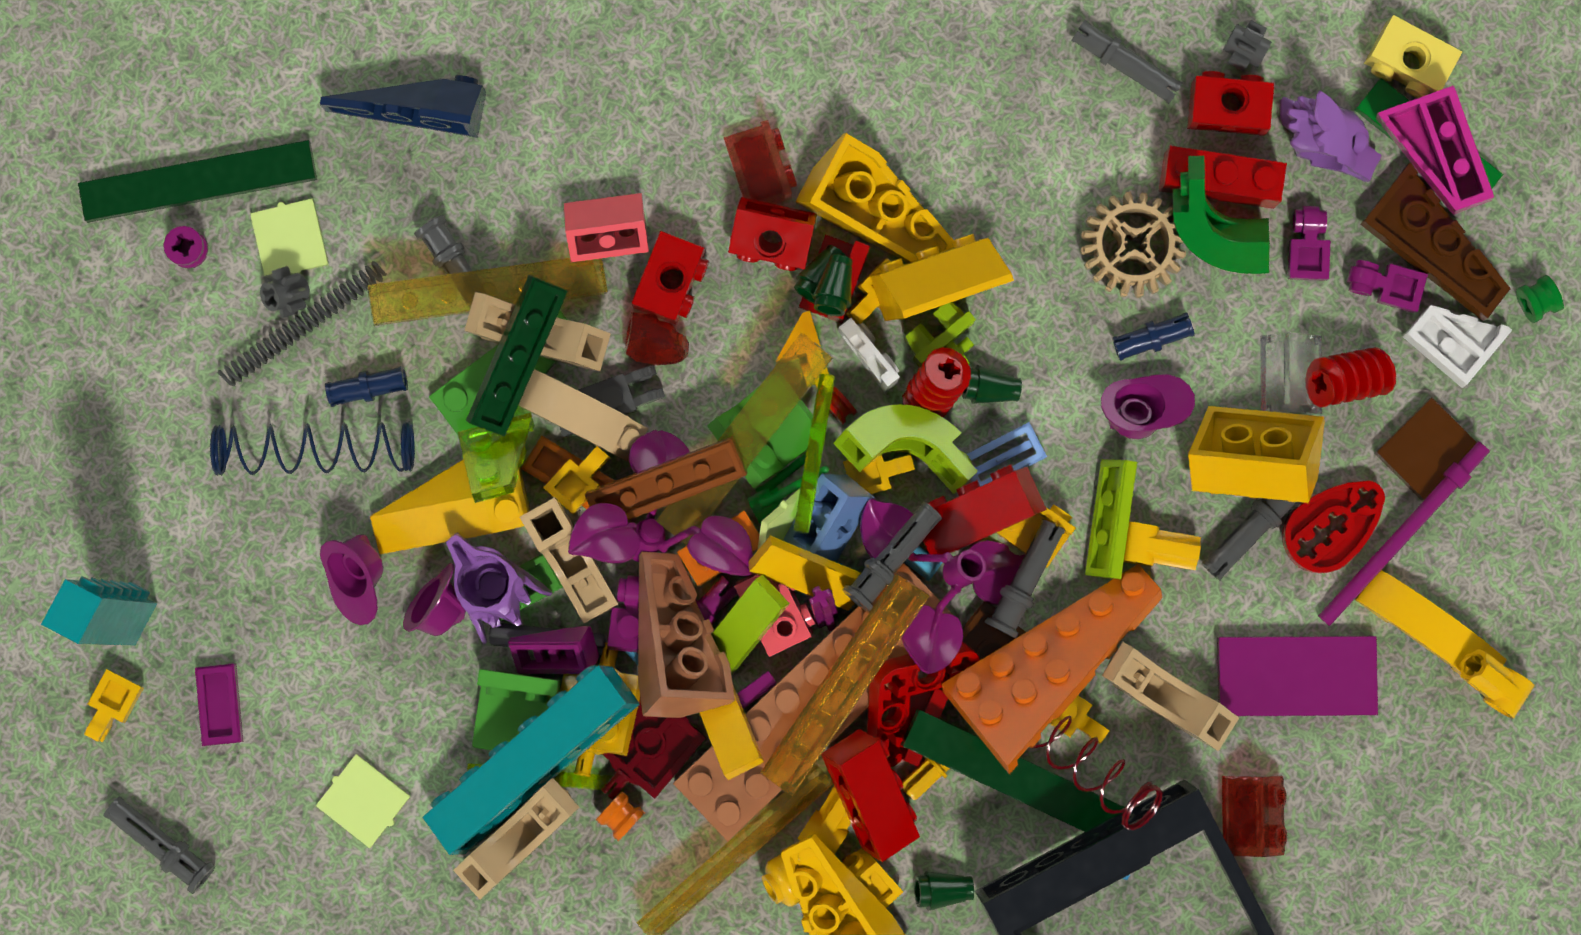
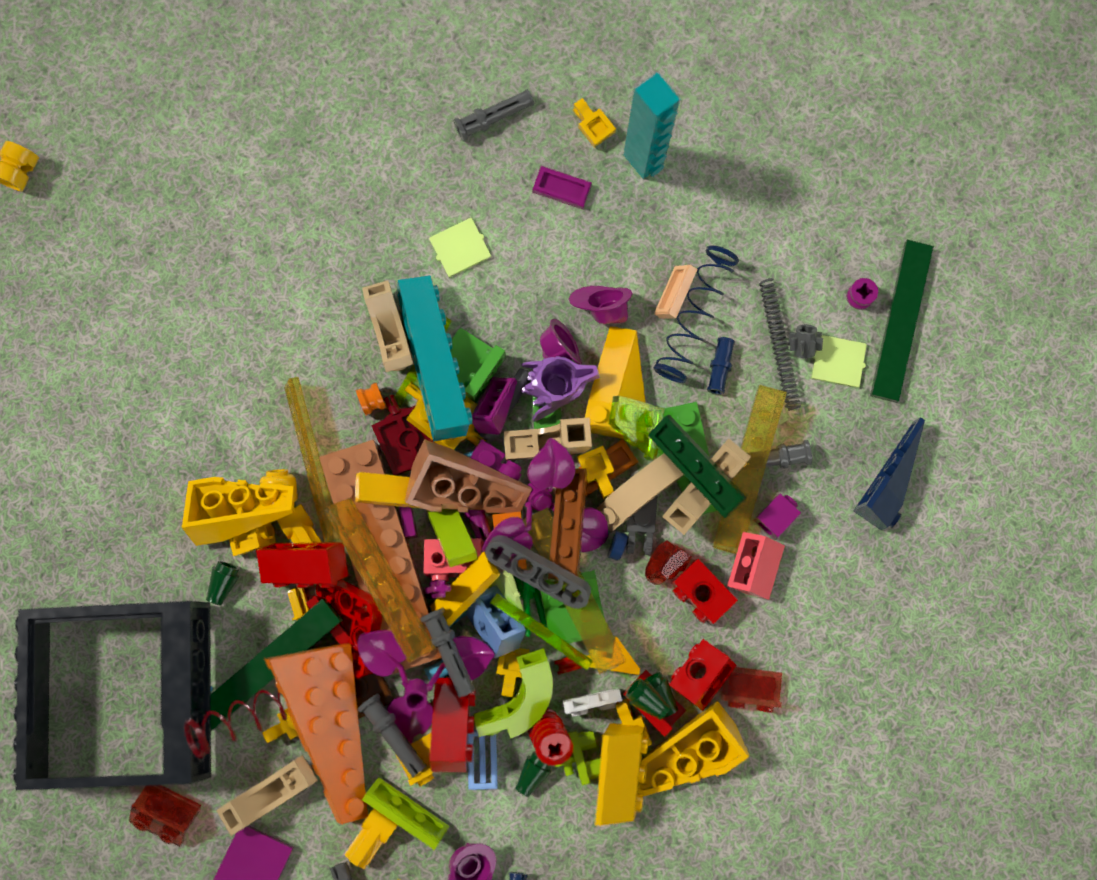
camera: 115 degrees right, 5 degrees down
(295, 488) = (675, 291): none -> light nougat tile
(528, 228) = (777, 515): none -> magenta brick
(661, 411) = (617, 546): none -> dark blue tile
(750, 491) = (540, 567): none -> dark grey beam

